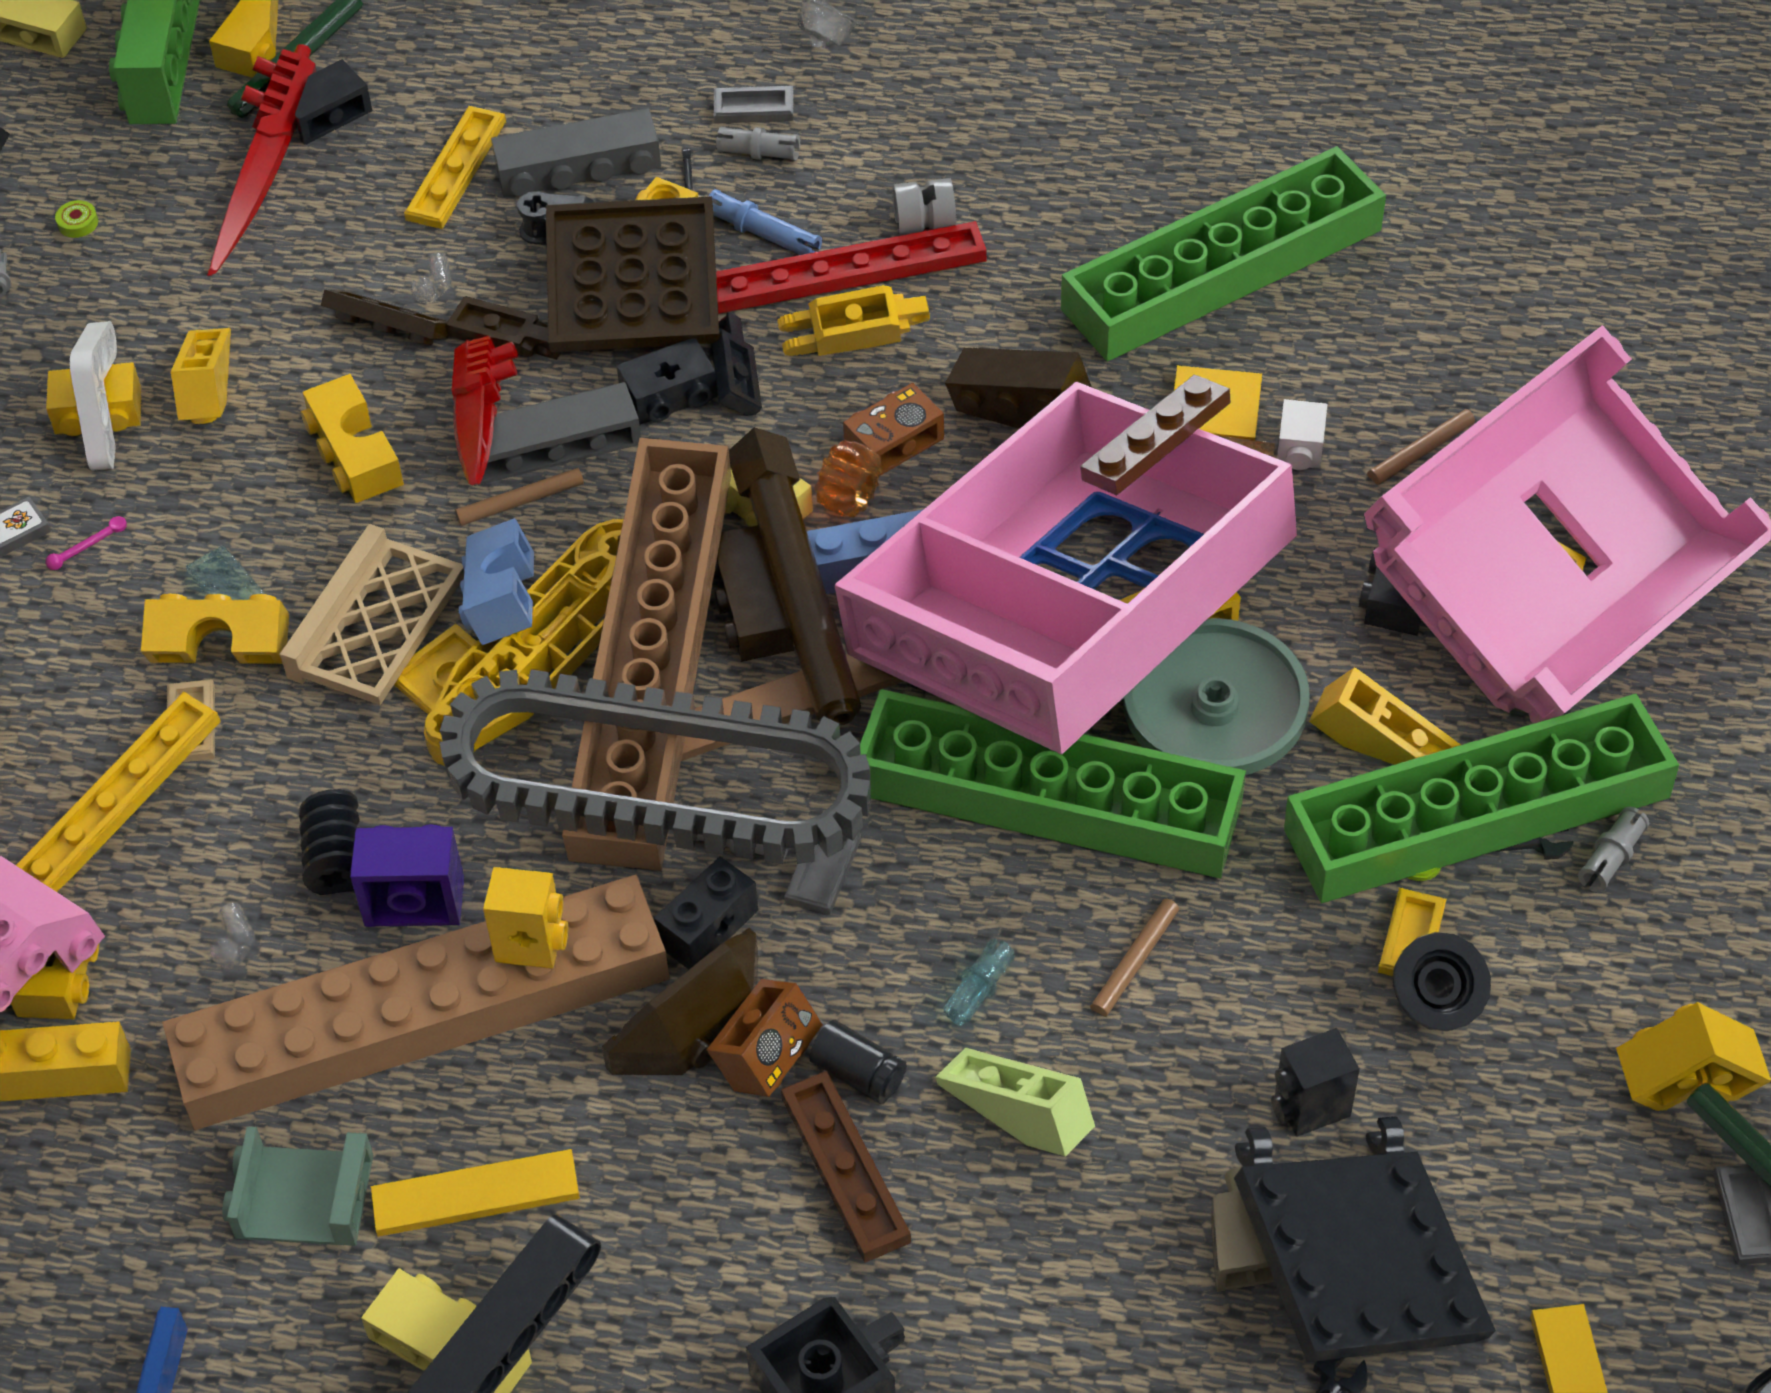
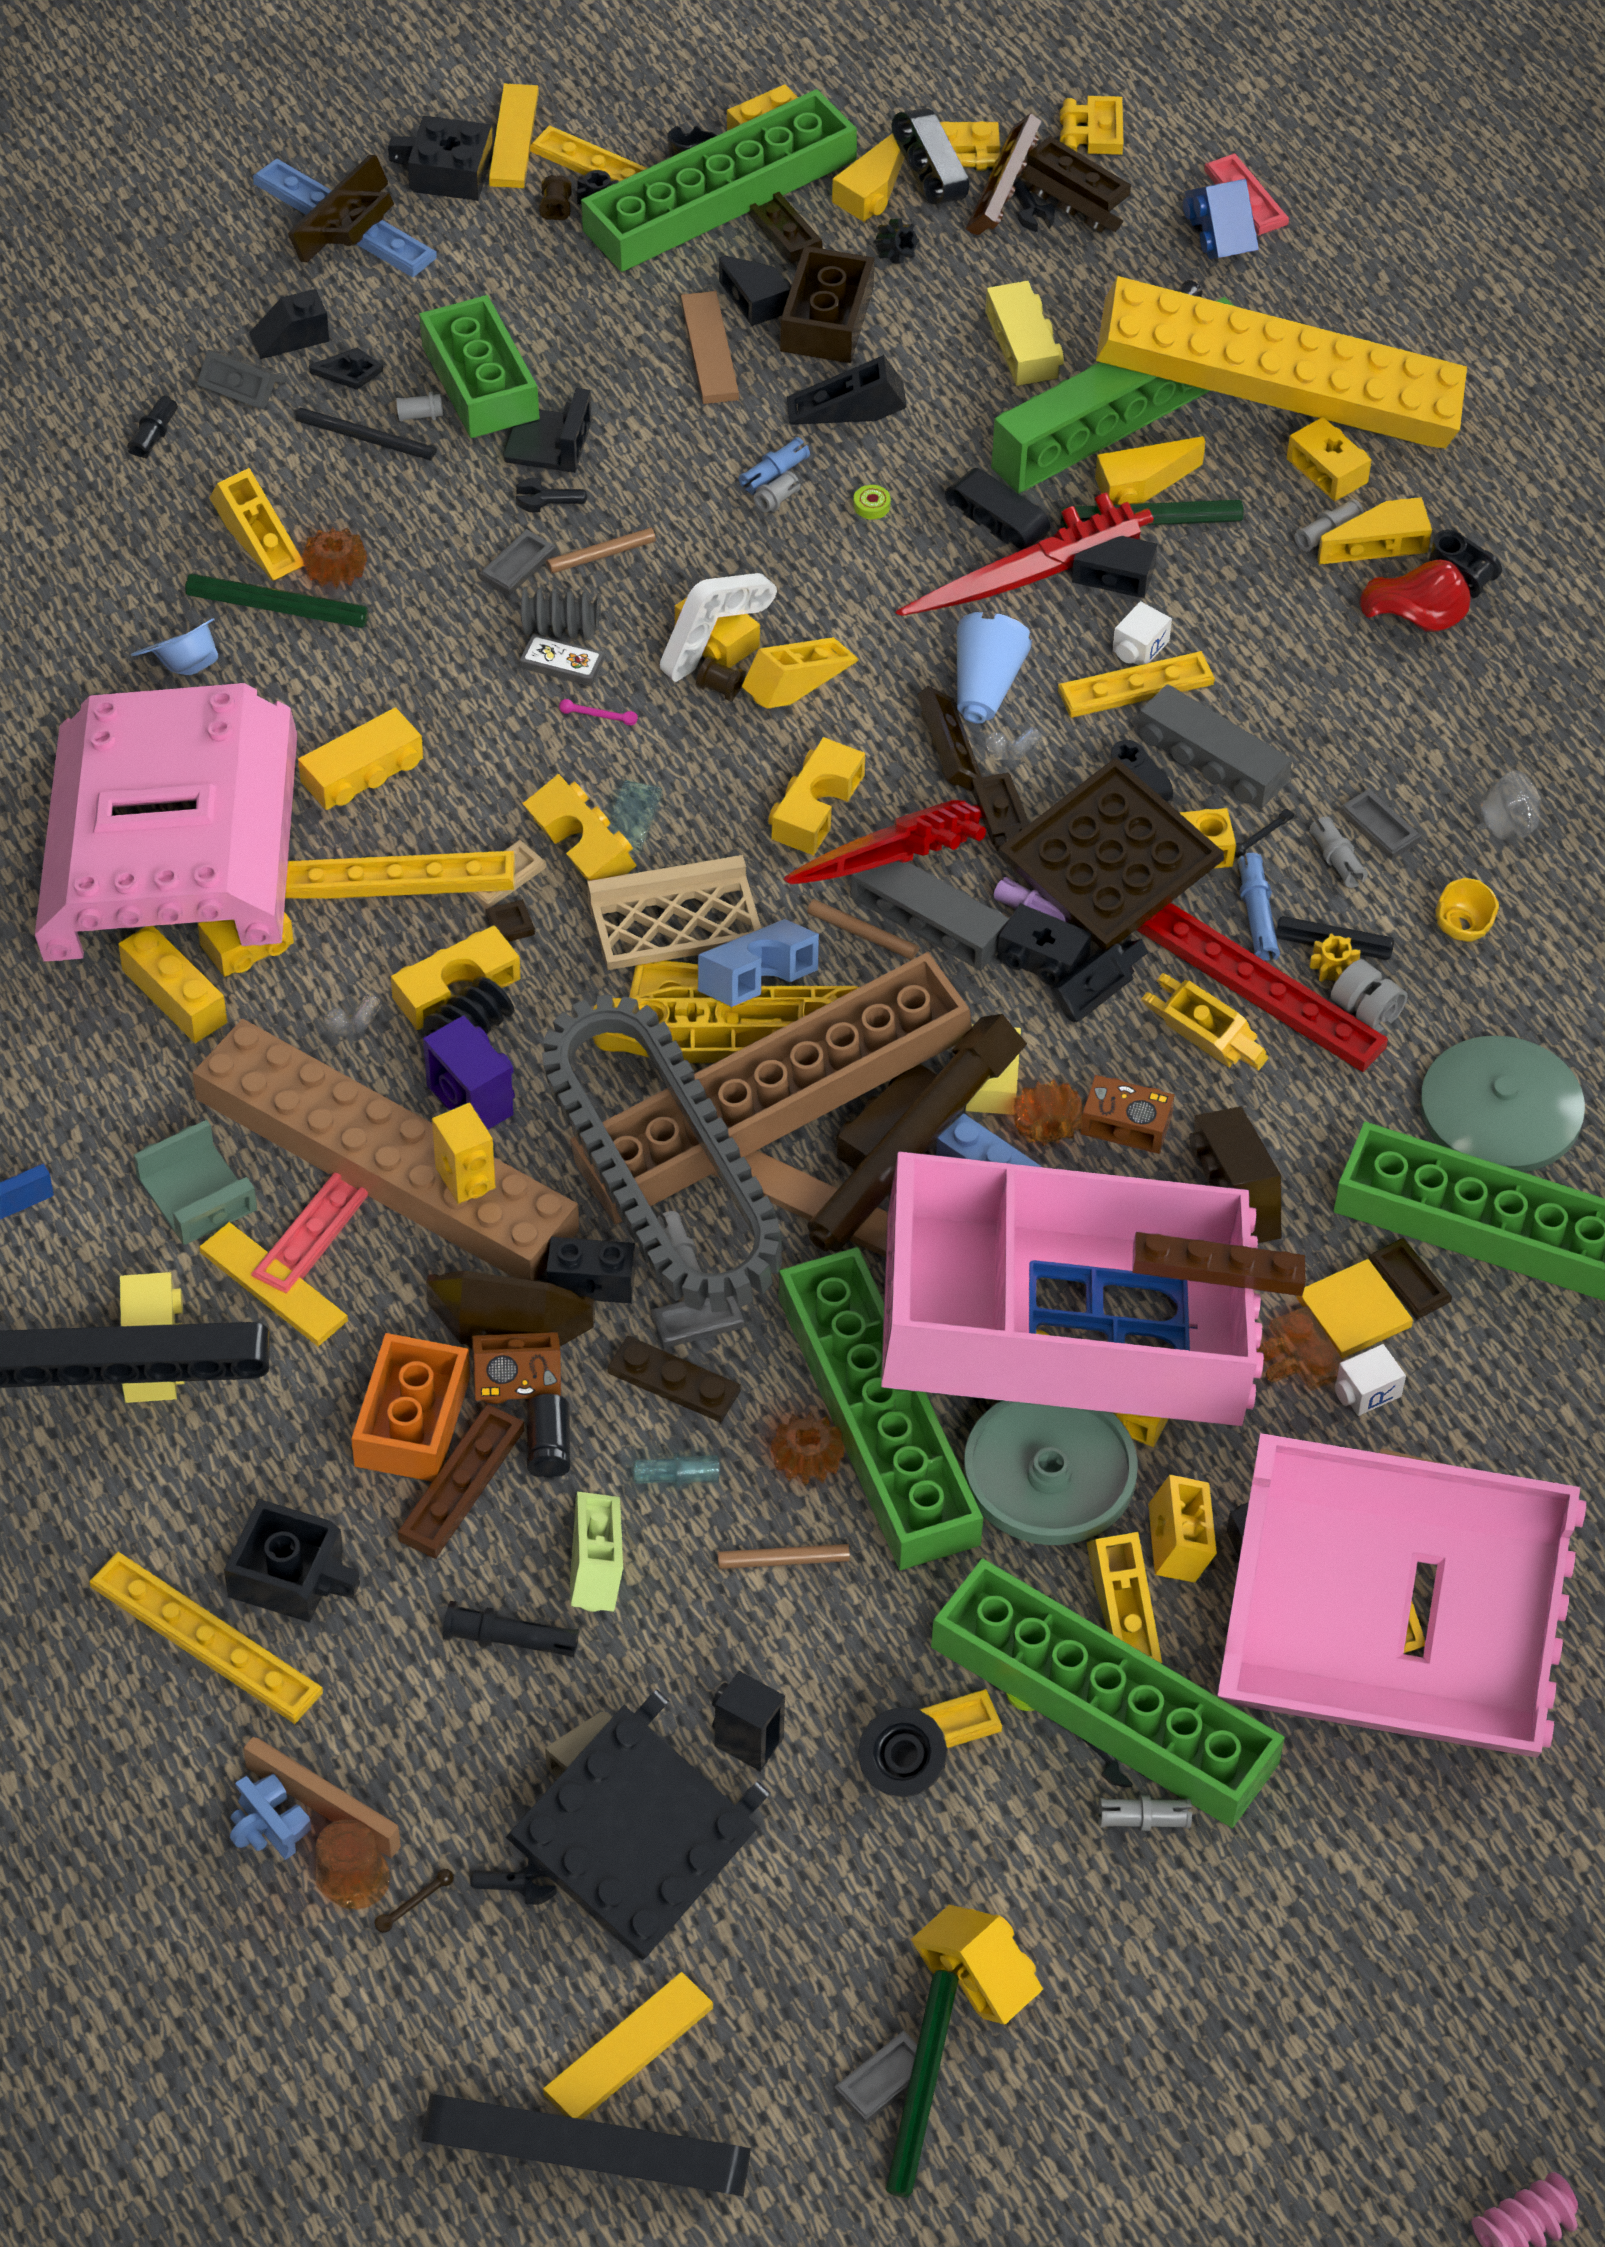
camera: 50 degrees right, 0 degrees up
(151, 430) = (720, 678): none -> dark brown bush
(182, 140) = (998, 508): none -> black beam
(249, 748) = (511, 920): none -> dark brown tile
(264, 859) = (425, 985): none -> yellow arch
(340, 239) = (987, 662): none -> light blue cone
(415, 129) = (1141, 634): none -> white brick
(446, 1122) = (312, 1232): none -> coral tile
(604, 367) = (1013, 894): none -> lavender axle
(736, 1153) = (411, 1407): none -> orange brick
(840, 196) = (1309, 932): none -> black axle
(864, 206) = (1333, 957): none -> yellow gear
(873, 925) = (674, 1379): none -> dark brown plate
(897, 92) = (1468, 900): none -> yellow hair
(1030, 1242) = (489, 1627): none -> black pin
(1042, 865) = (807, 1448): none -> clear orange gear
(1096, 194) = (1503, 1102): none -> sand green dish
(1216, 351) = (1410, 1278): none -> dark brown tile
(1349, 637) = (1182, 1528): none -> yellow brick

